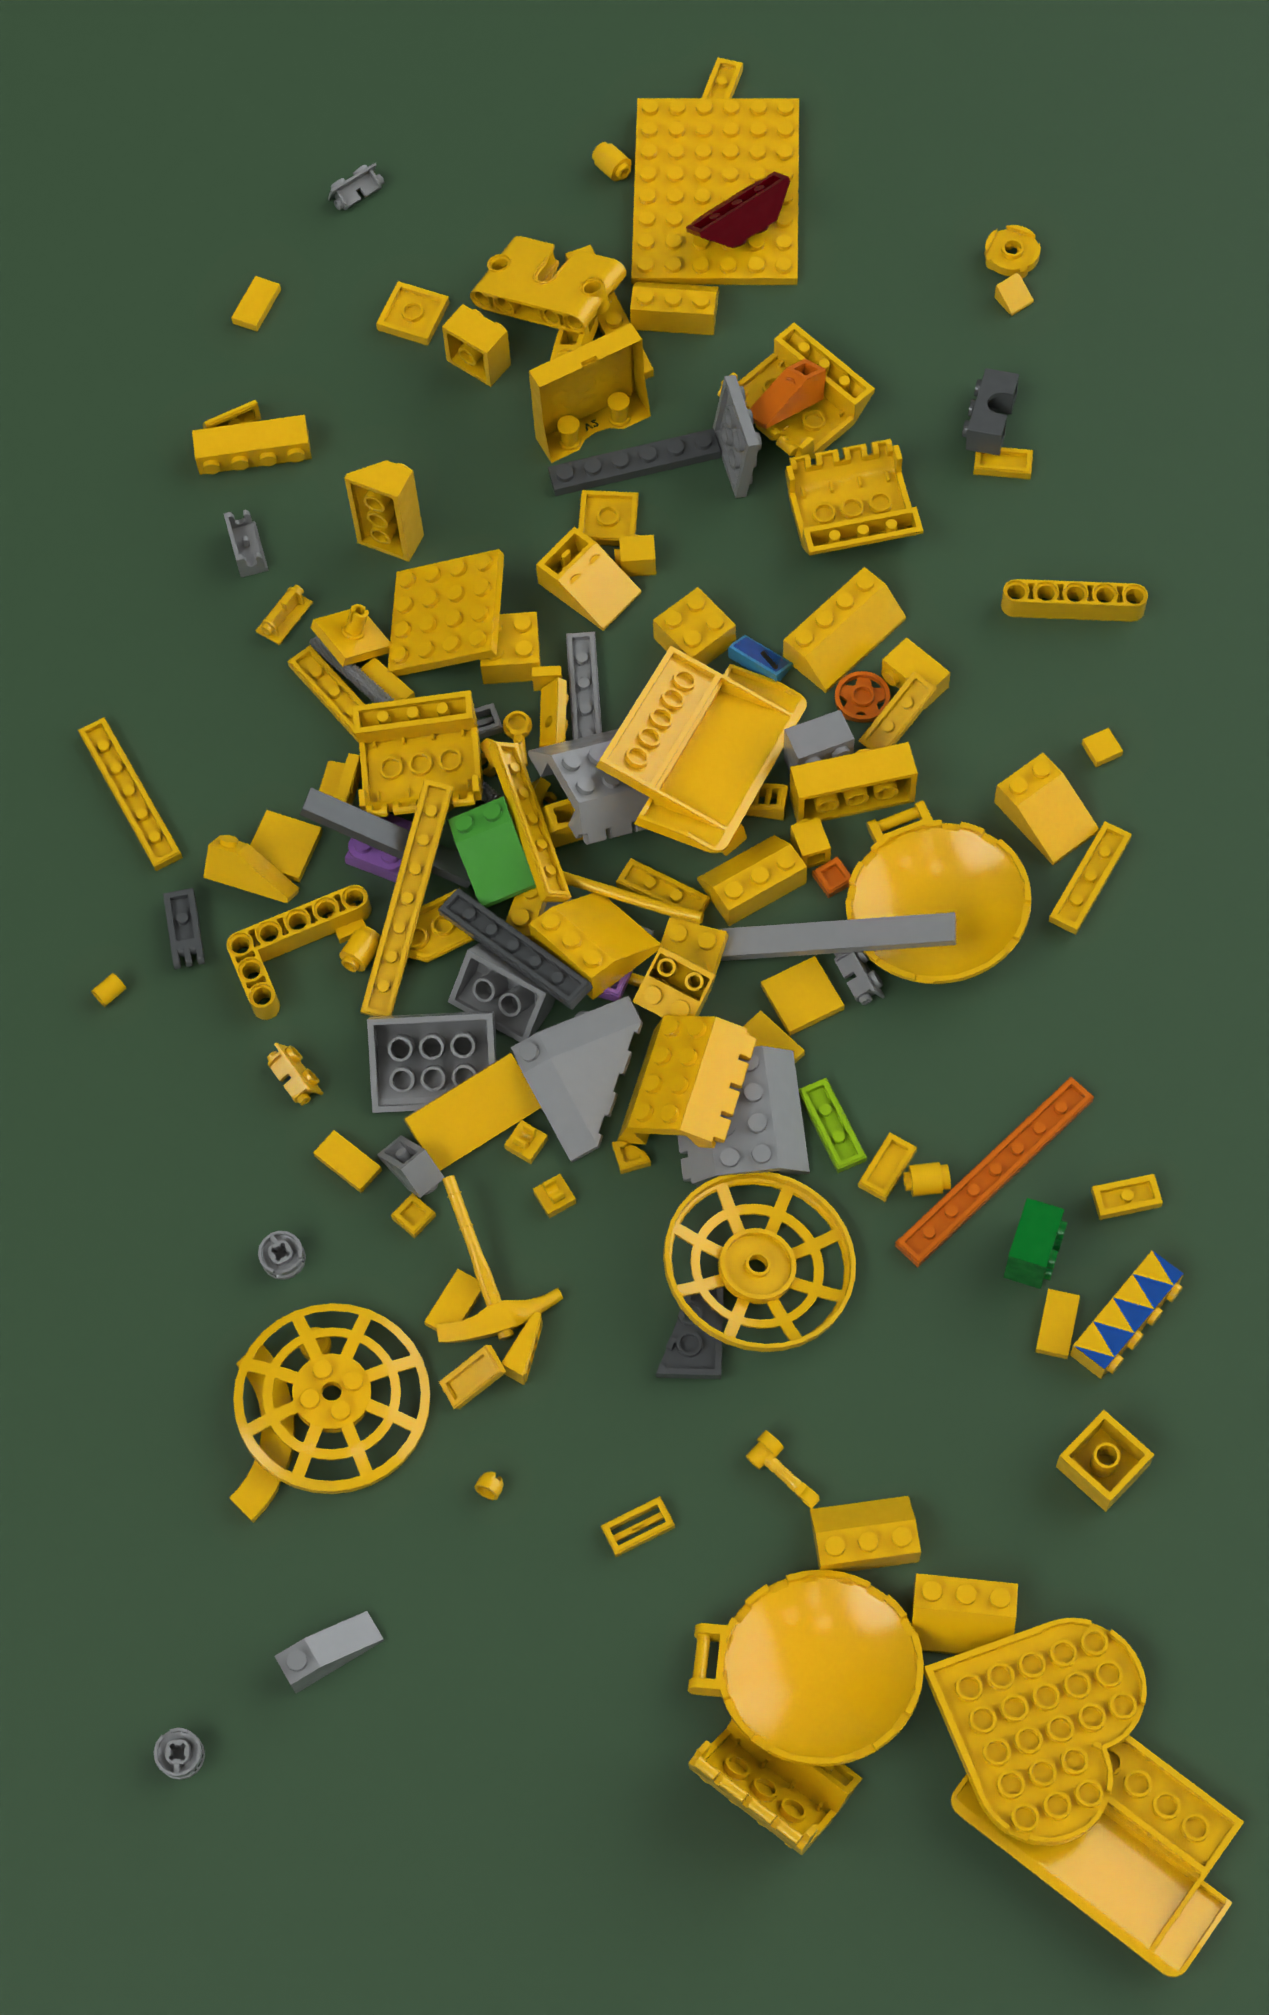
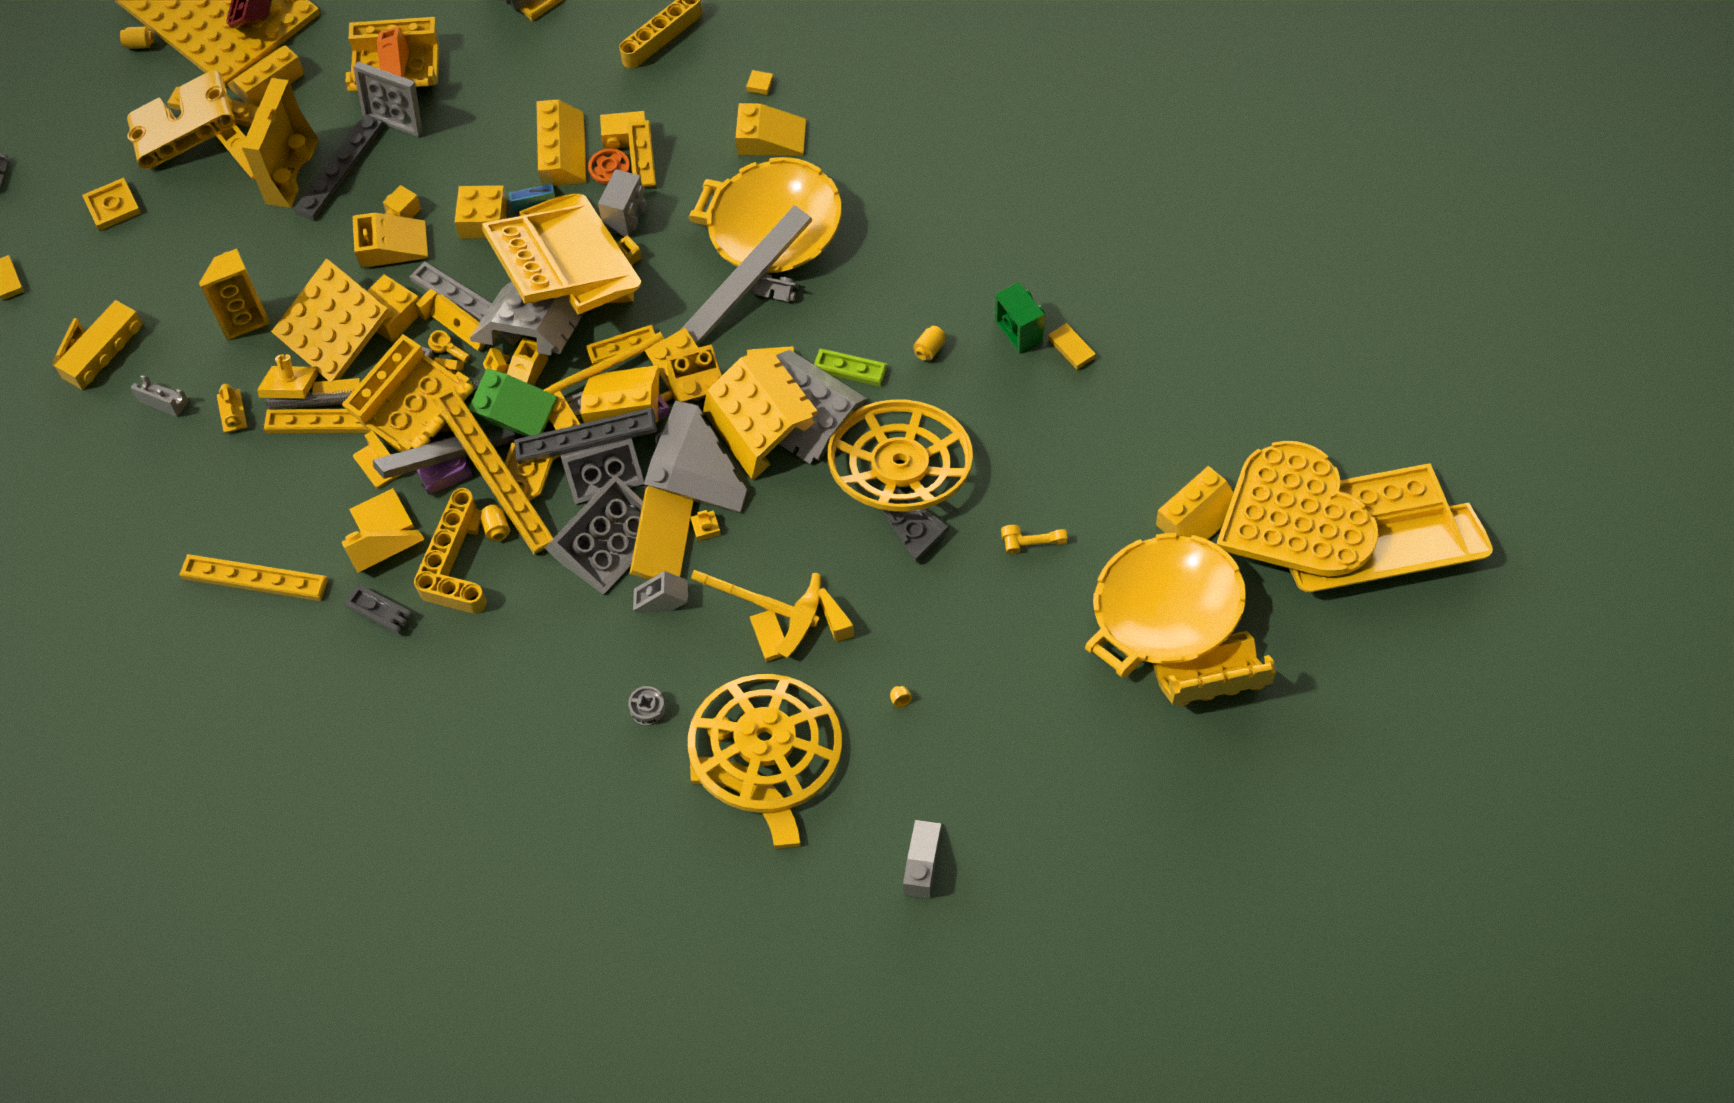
camera: 50 degrees left, 5 degrees down
(108, 989) = (373, 680): yellow hinge -> none
(179, 1753) = (911, 990): light grey wheel -> none
(302, 1082) = (546, 617): yellow hinge -> none
(347, 1161) = (621, 628): yellow tile -> none
(413, 1215) = (691, 618): yellow tile -> none
(472, 1377) = (826, 654): yellow tile -> none
(476, 345) = (176, 182): yellow brick -> none
(529, 822) = (514, 368): yellow tile -> none
(554, 1195) = (753, 535): yellow tile -> none
(608, 515) = (357, 200): yellow tile -> none
(630, 1157) = (768, 480): yellow tile -> none
(644, 1537) = (992, 655): yellow tile -> none
(754, 879) = (663, 294): yellow slope -> none
(802, 995) = (758, 324): yellow tile -> none
(810, 841) = (671, 252): yellow brick -> none
(832, 877) = (702, 259): orange tile -> none
(850, 498) = (485, 80): yellow slope -> none
(854, 783) = (661, 202): yellow brick -> none
(865, 1535) = (1109, 524): yellow slope -> none
(887, 1167) = (901, 359): yellow tile -> none
(994, 1172) = (955, 312): orange tile -> none
(1090, 878) = (830, 142): yellow plate -> none
(1104, 1460) = (1173, 377): yellow brick -> none
(1126, 1196) = (1031, 260): yellow plate -> none
(1127, 1314) = (1099, 309): yellow brick -> none

